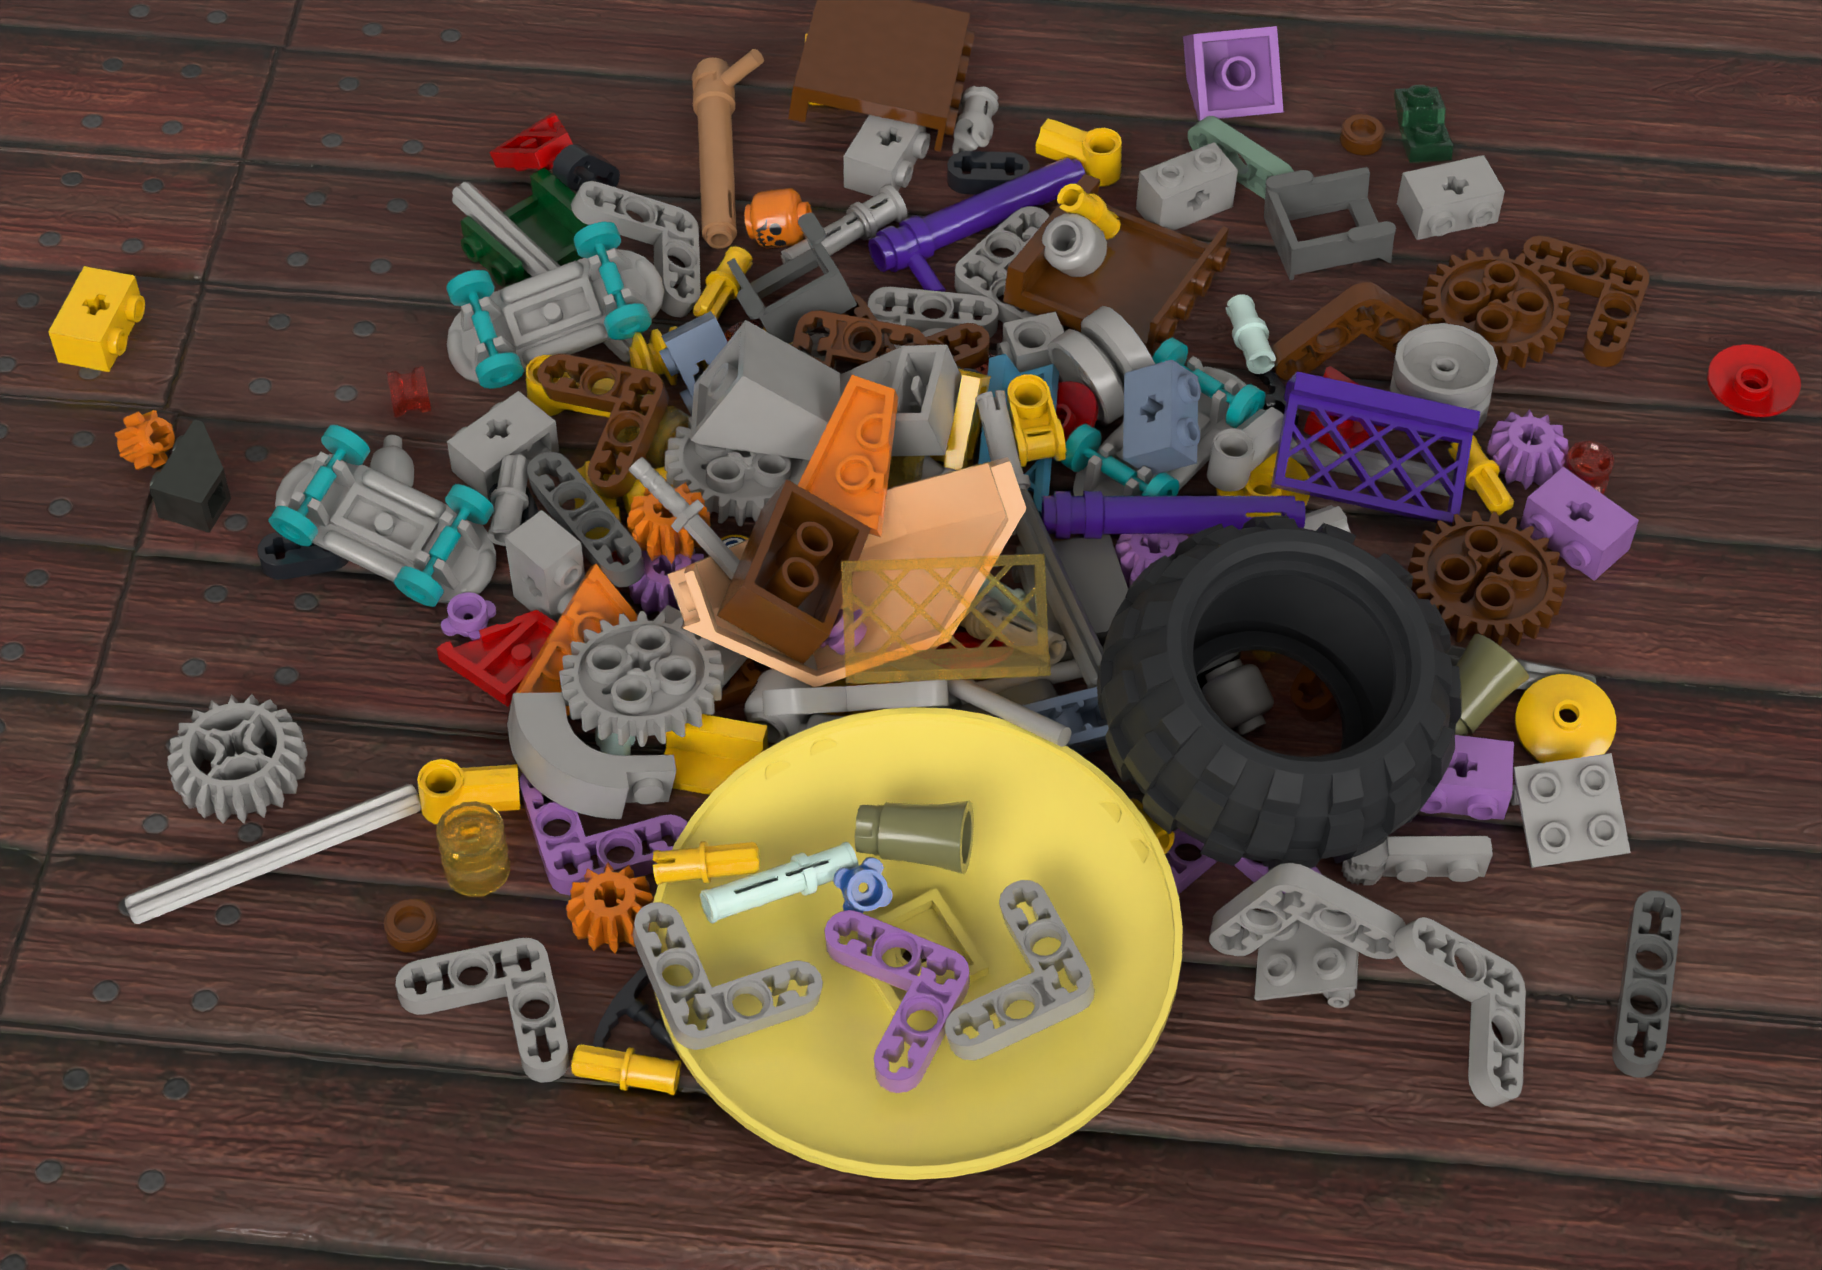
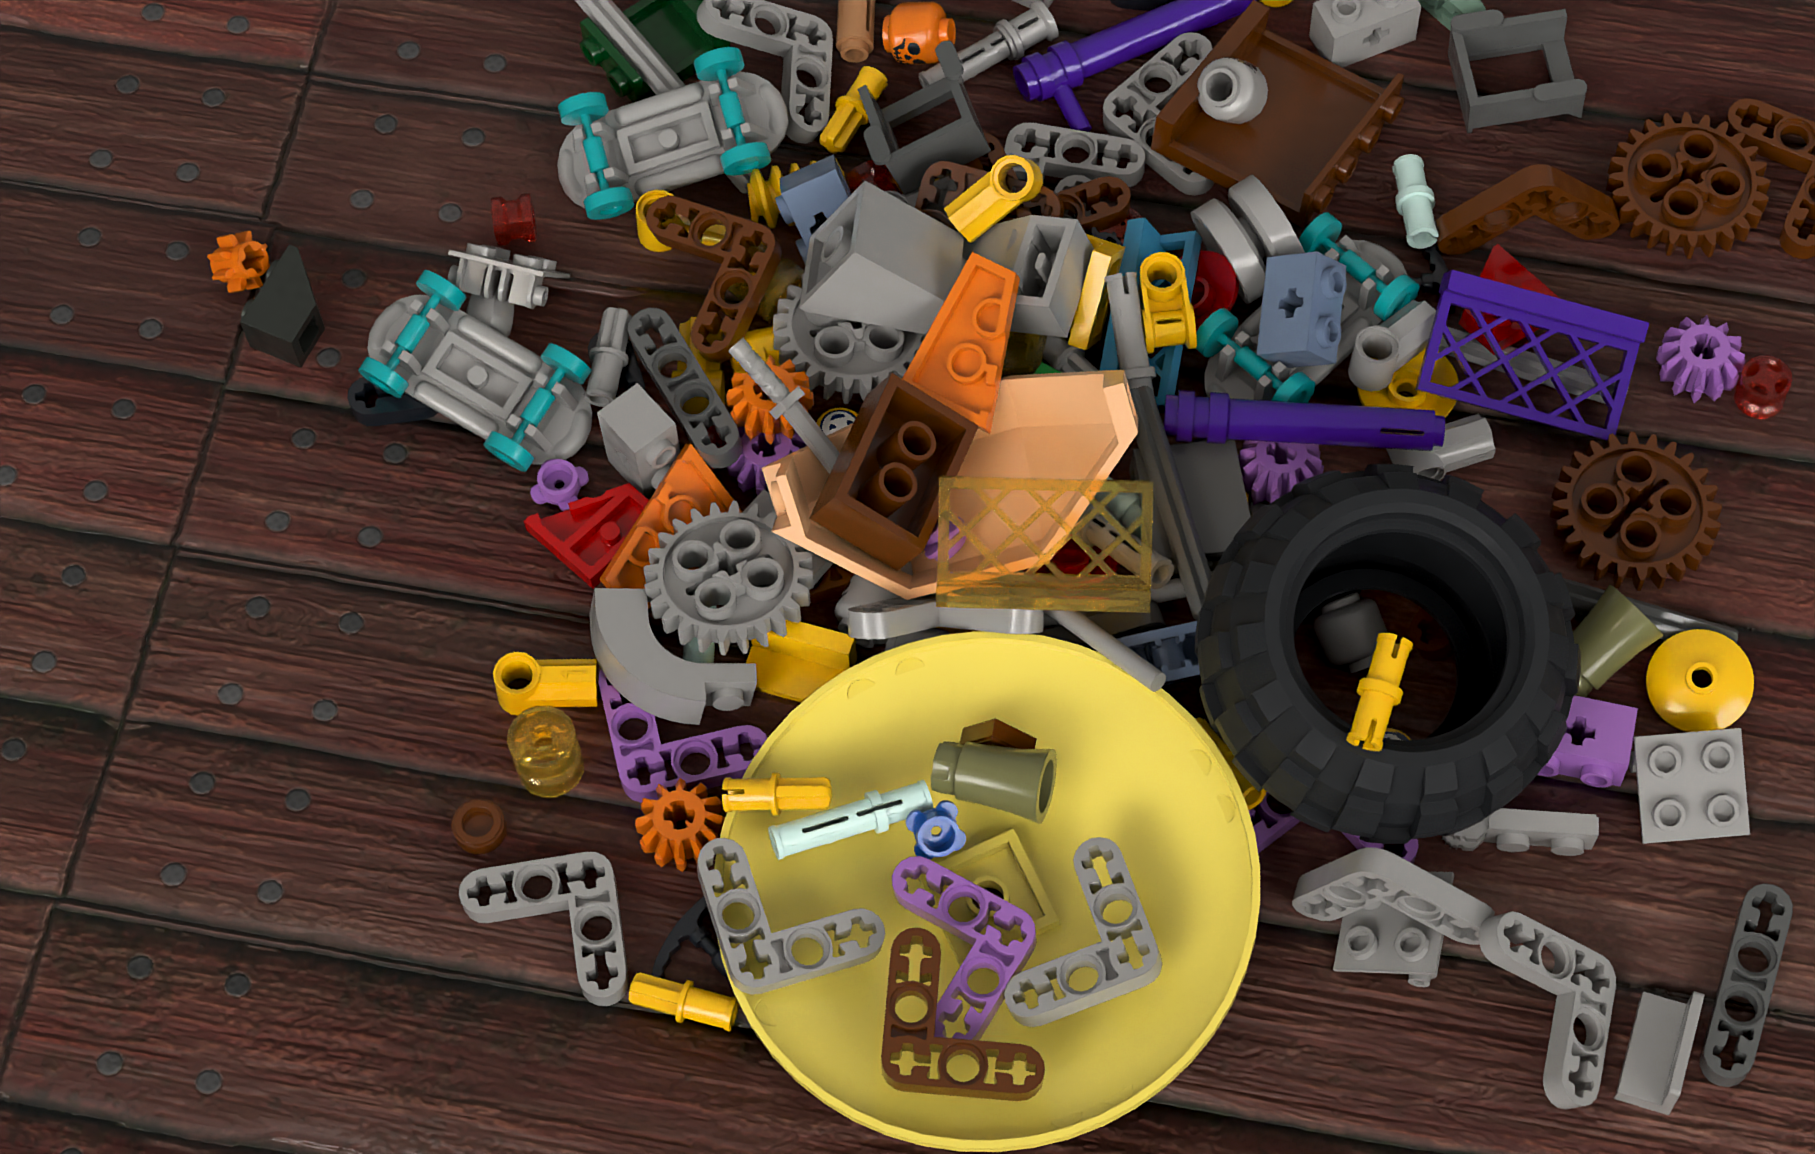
camera: 10 degrees right, 10 degrees up
(97, 319) = (196, 115): yellow brick -> none
(240, 774) = (321, 657): light grey gear -> none
(272, 854) = (346, 738): axle -> none
(419, 436) = (519, 280): none -> light grey hinge
(507, 428) = (613, 276): light grey brick -> none
(861, 339) = (991, 199): none -> yellow piece
(867, 1073) = (920, 1039): none -> reddish brown beam
(914, 793) = (997, 734): none -> reddish brown tile
(1027, 340) = (1182, 189): light grey brick -> none
(1091, 206) = (1252, 48): yellow pin -> none
(1283, 706) = (1379, 691): none -> yellow pin
(1446, 367) = (1619, 265): light grey wheel -> none
(1450, 197) = (1655, 45): light grey brick -> none
(1483, 477) = (1648, 389): yellow axle -> none
(1574, 1047) = (1658, 1051): none -> light grey panel
(1579, 523) = (1744, 451): medium lavender brick -> none

